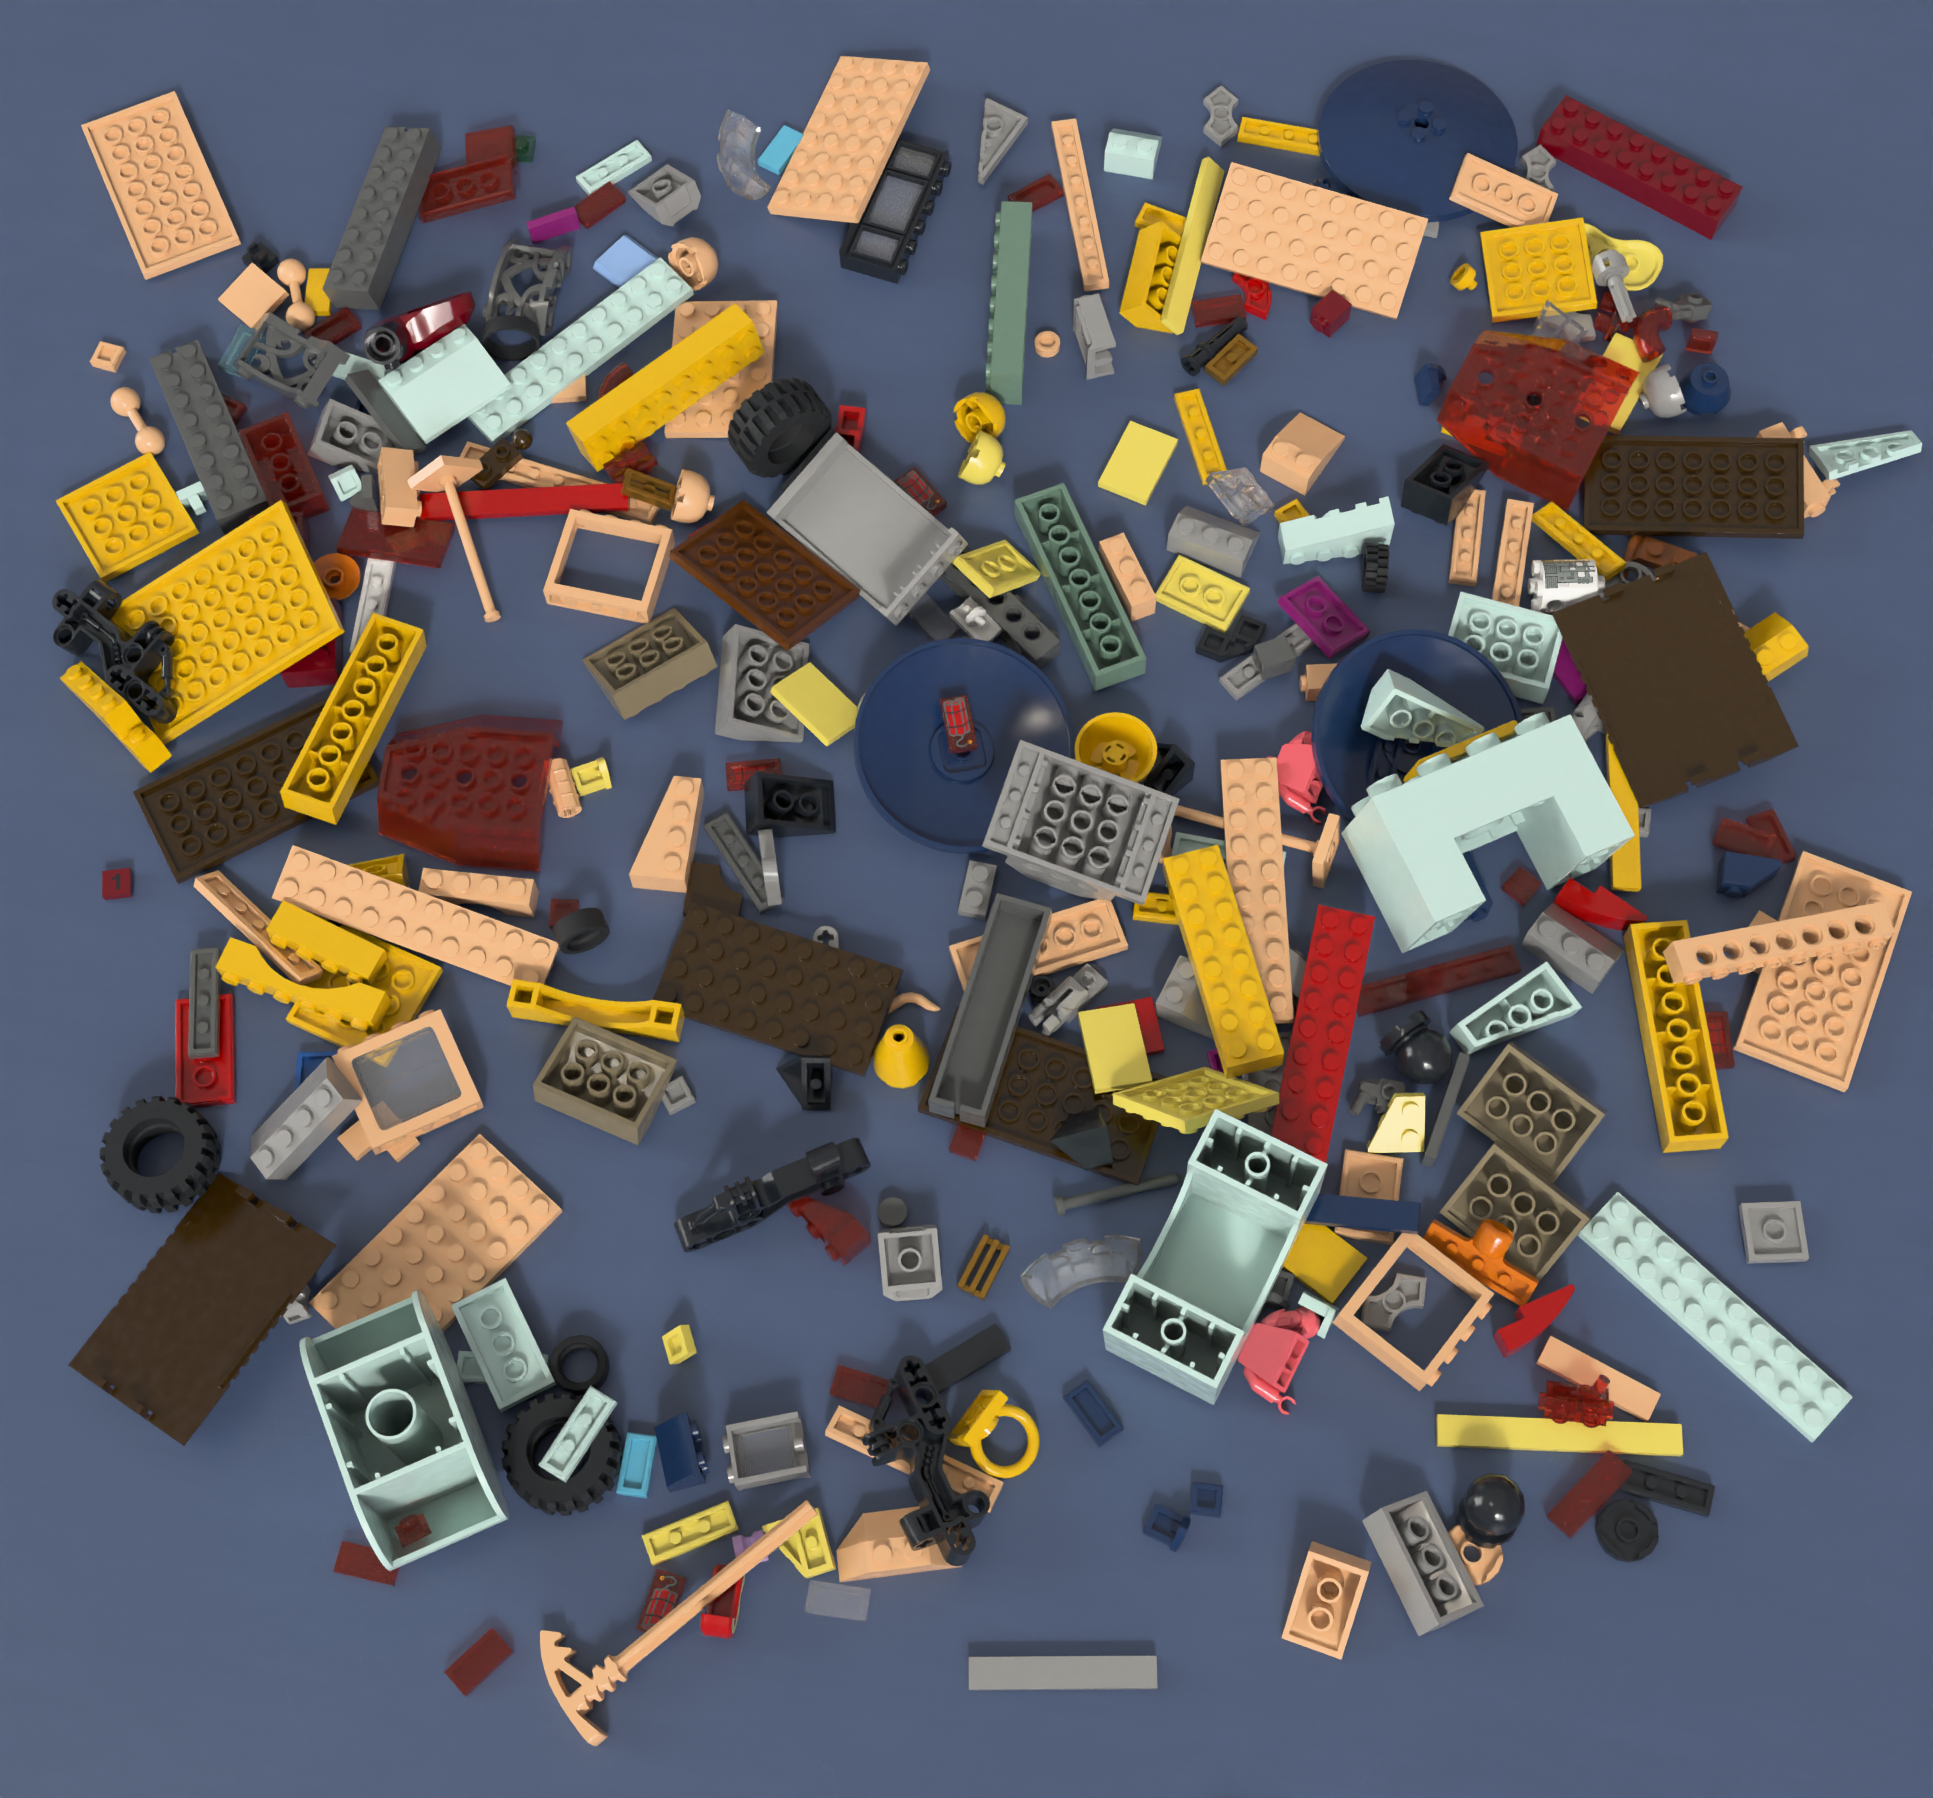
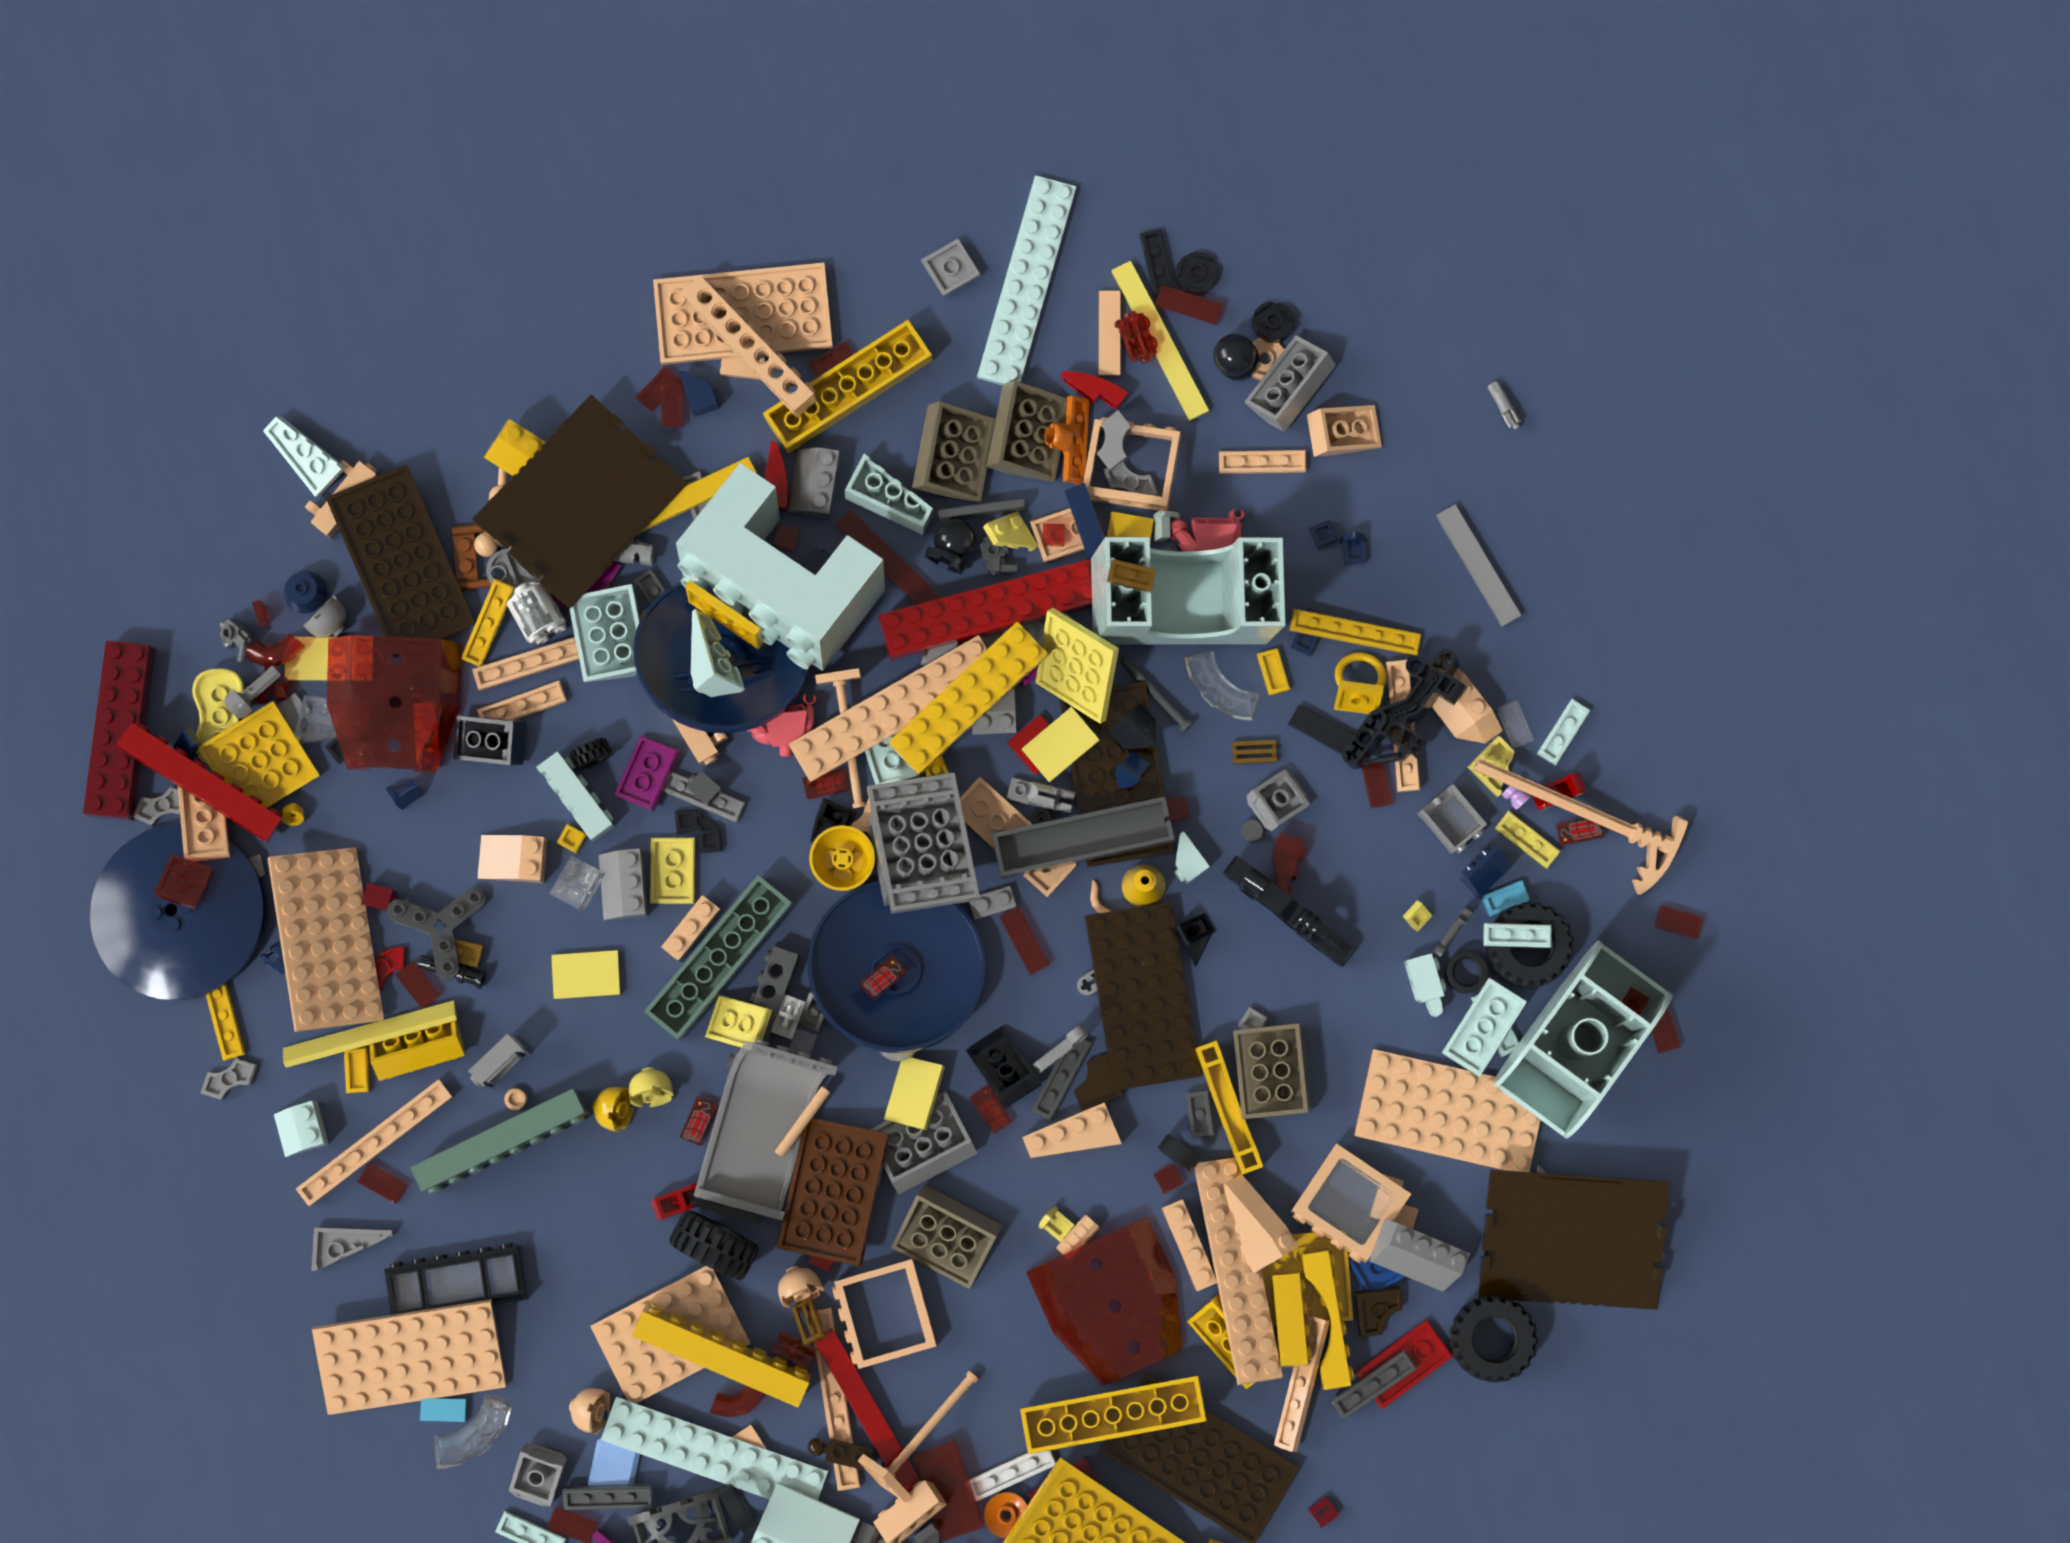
camera: 120 degrees left, 15 degrees up
(281, 1052) = (1375, 1308): none -> dark brown tile
(442, 963) = (1260, 1229): none -> light nougat wedge
(596, 1310) = (1426, 982): none -> light aqua hinge
(602, 243) = (608, 1497): none -> dark grey tile
(610, 980) = (1199, 1114): none -> dark grey plate
(639, 1384) = (1456, 926): none -> dark grey bar
(794, 1658) = (1563, 732): none -> light aqua tile
(856, 580) = (802, 1122): none -> light nougat piece
(900, 1121) = (1188, 860): none -> light aqua slope
(915, 901) = (1024, 940): none -> clear red tile
(1040, 1107) = (1131, 770): none -> dark blue tile
(1061, 1466) = (1355, 632): none -> yellow tile
(1067, 1343) = (1273, 672): none -> yellow tile
(1199, 433) = (537, 941): yellow tile -> none
(1209, 789) = (828, 784): none -> clear red tile
(1262, 1165) = (1131, 575): none -> pearl gold plate
(1271, 367) = (425, 920): none -> dark grey piece
(1338, 1476) = (1262, 462): none -> light nougat tile
(1372, 1173) = (1053, 535): none -> clear red tile
(1441, 1289) = (1115, 430): none -> light grey tile
(1443, 138) = (183, 882): none -> clear red plate
(1515, 1589) = (1273, 322): none -> black tile
(1542, 200) = (199, 782): none -> red brick
(1588, 212) = (188, 743): none -> dark blue tile

